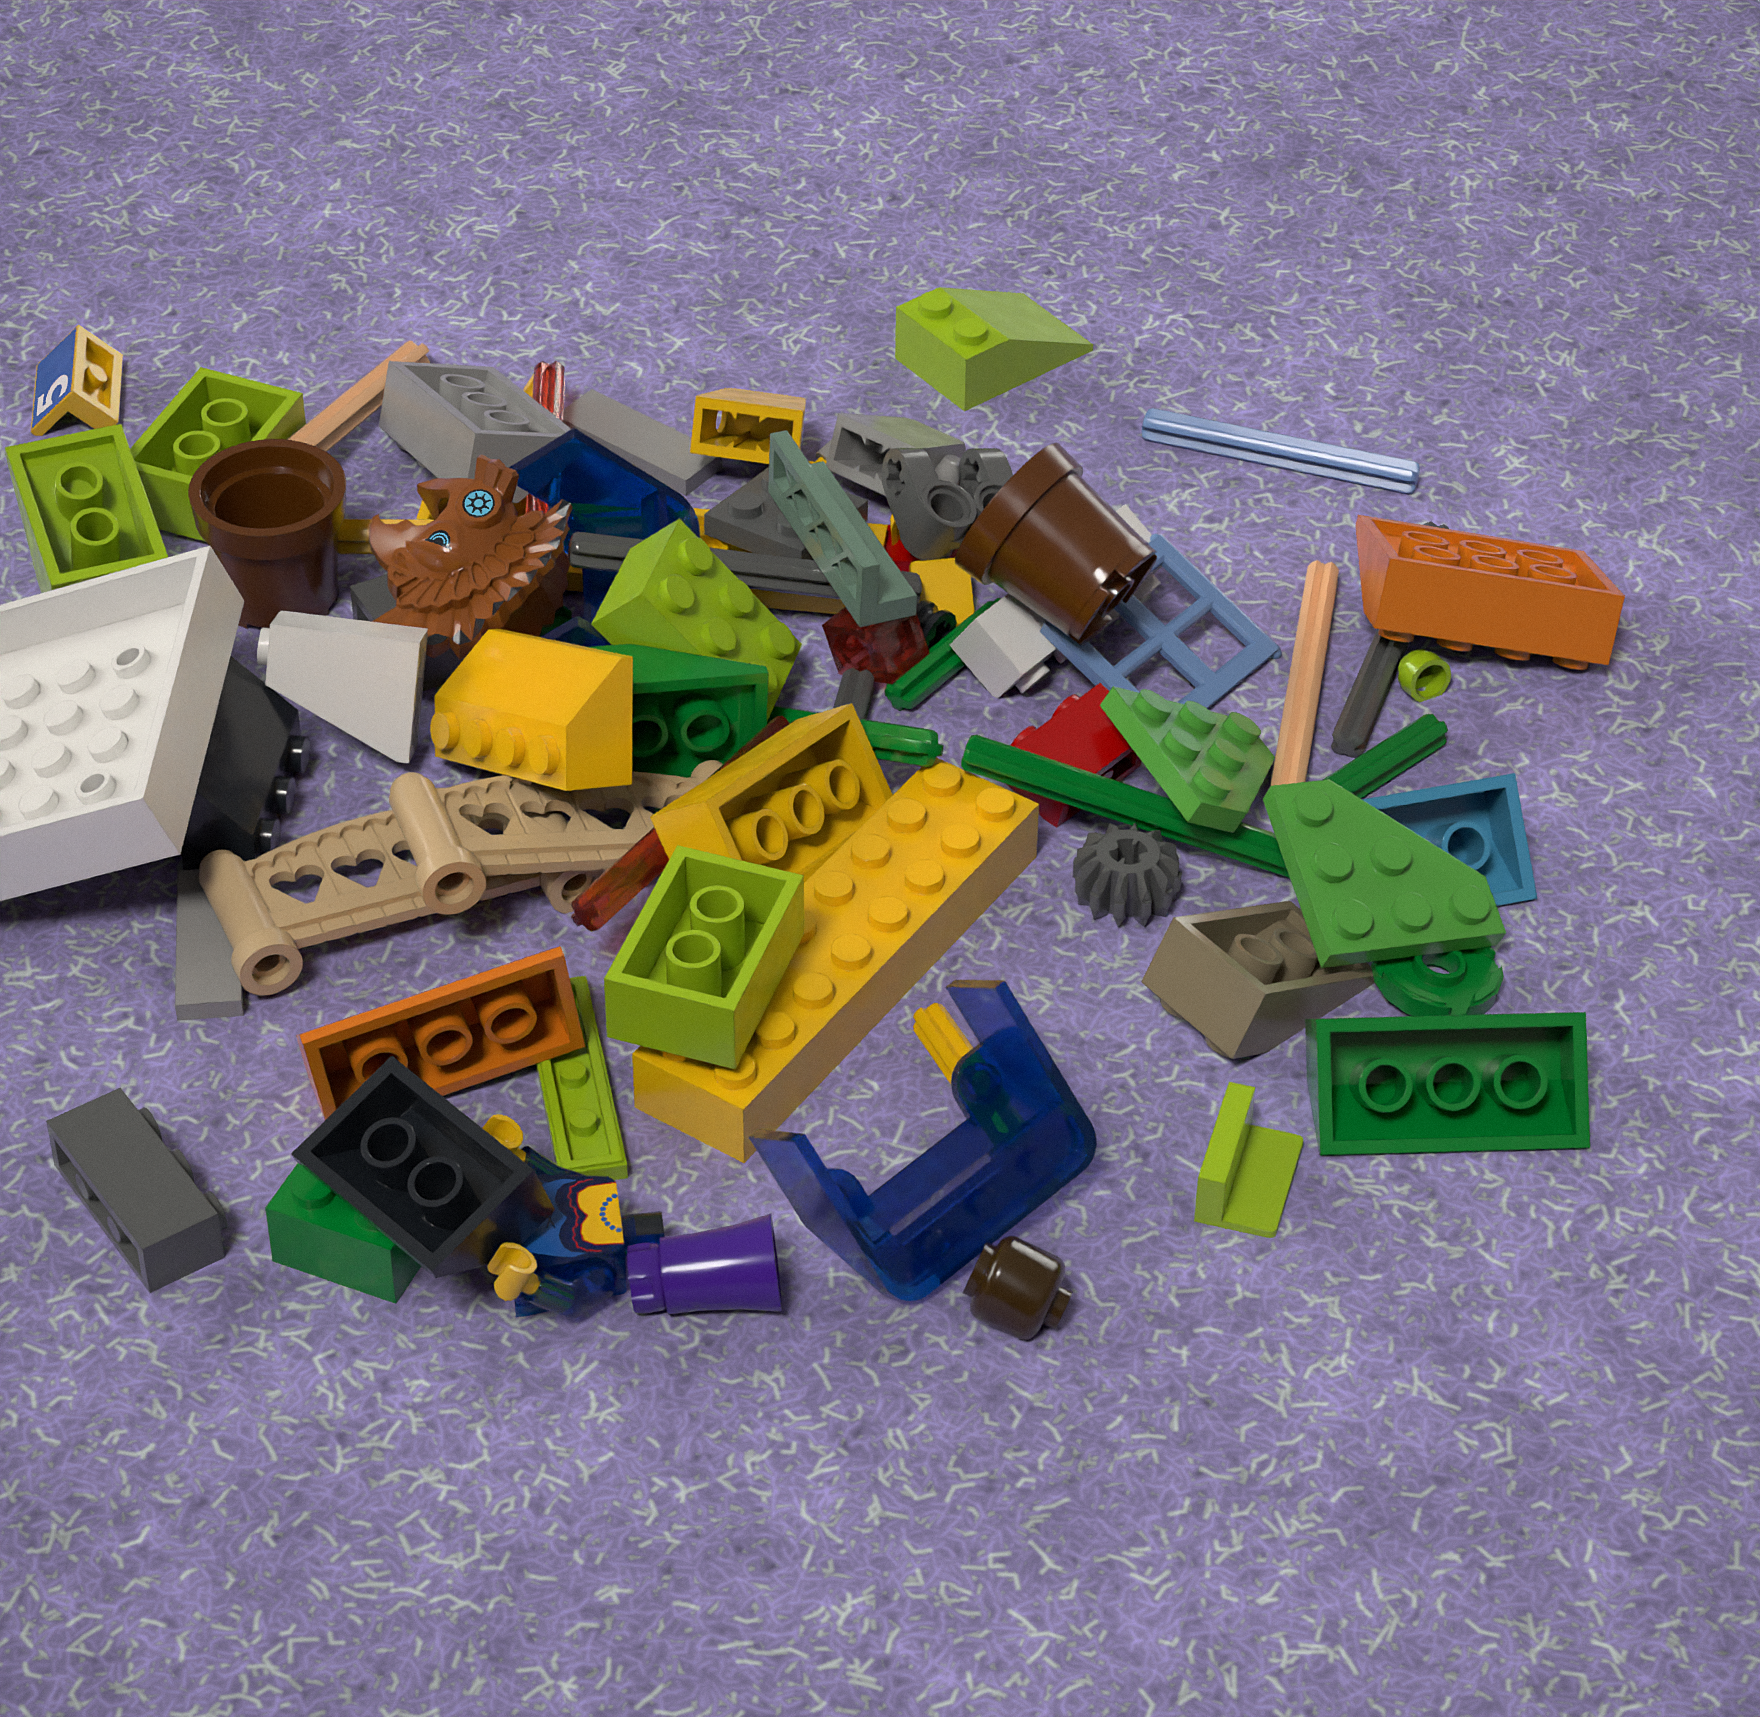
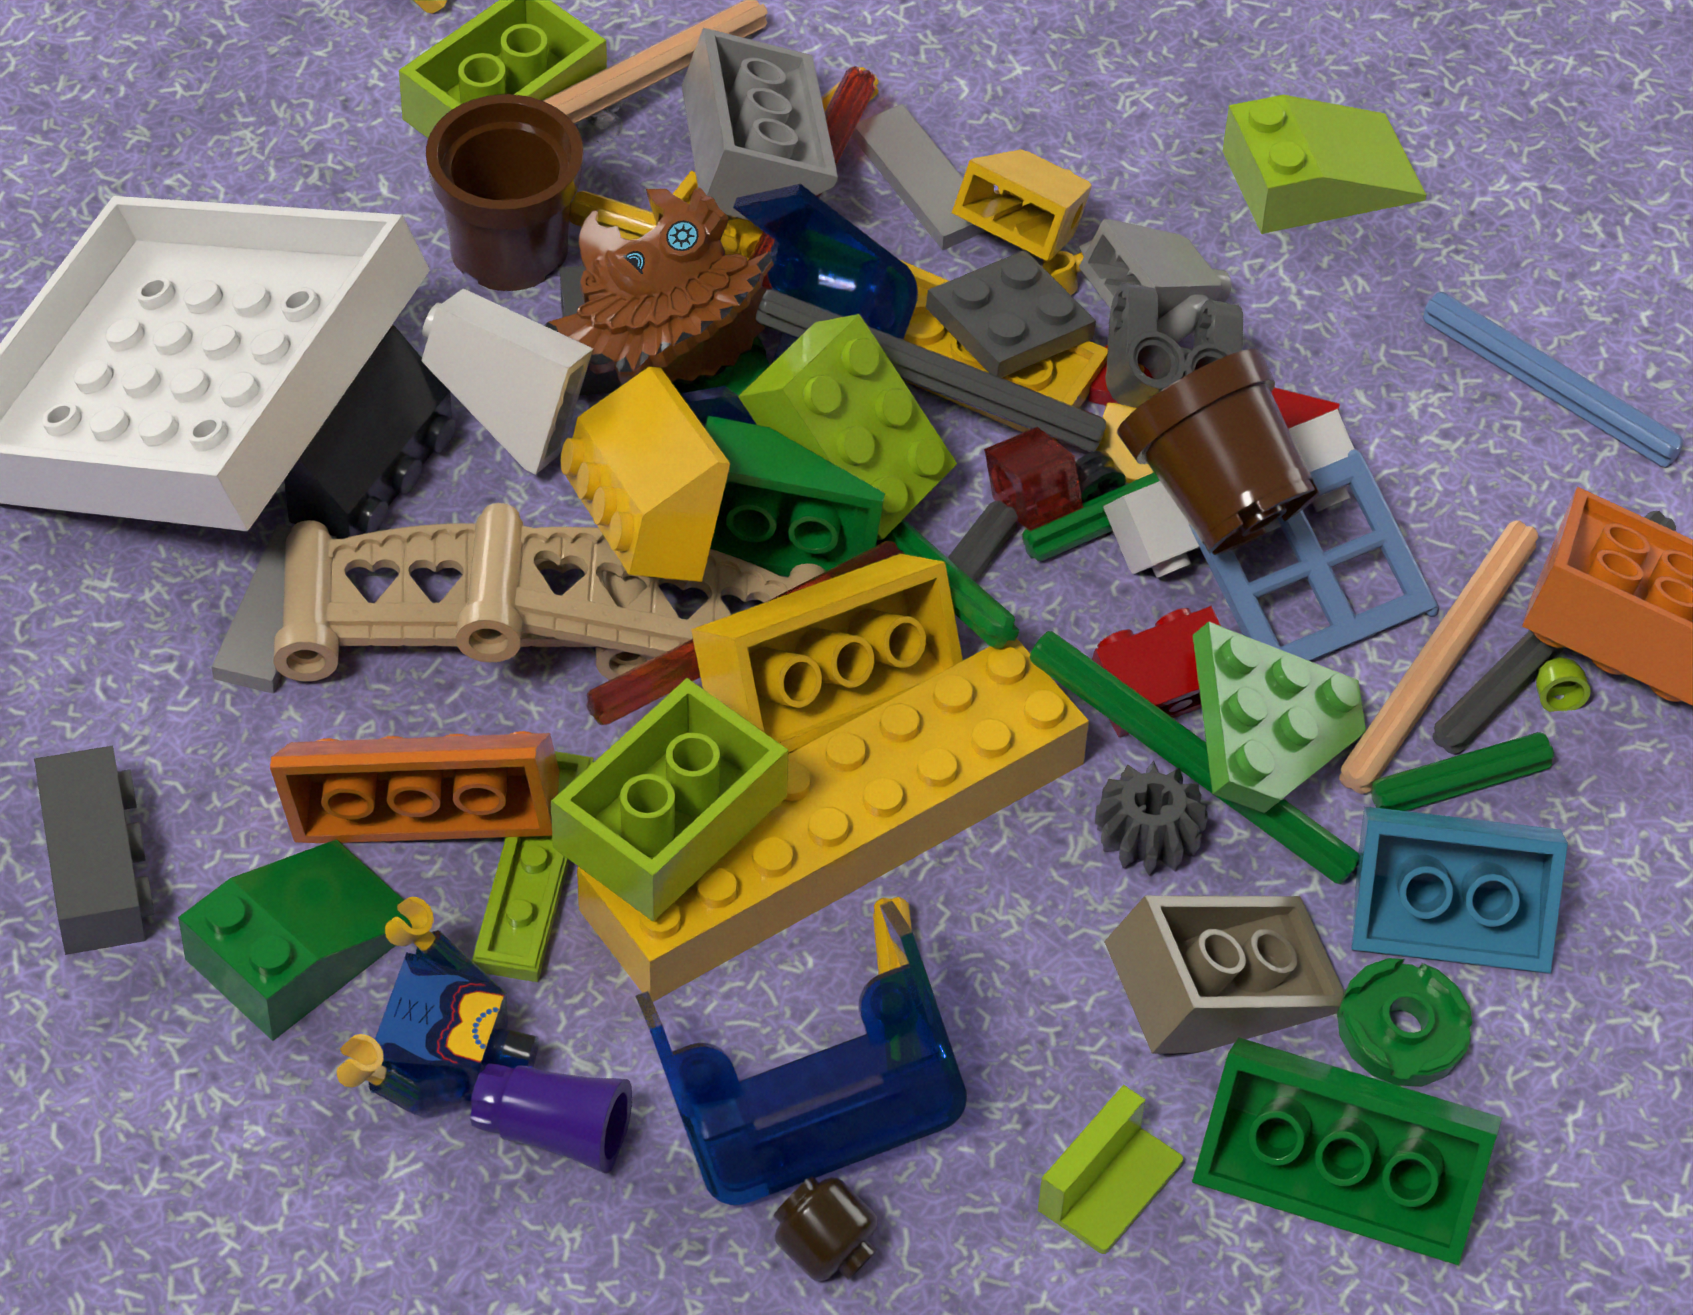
camera: 20 degrees right, 10 degrees up
(83, 506) = (347, 121): lime slope -> none
(424, 1173) = (315, 941): black slope -> none
(837, 536) = (1032, 365): sand green fence -> none
(1373, 883) = (1370, 915): bright green plate -> none

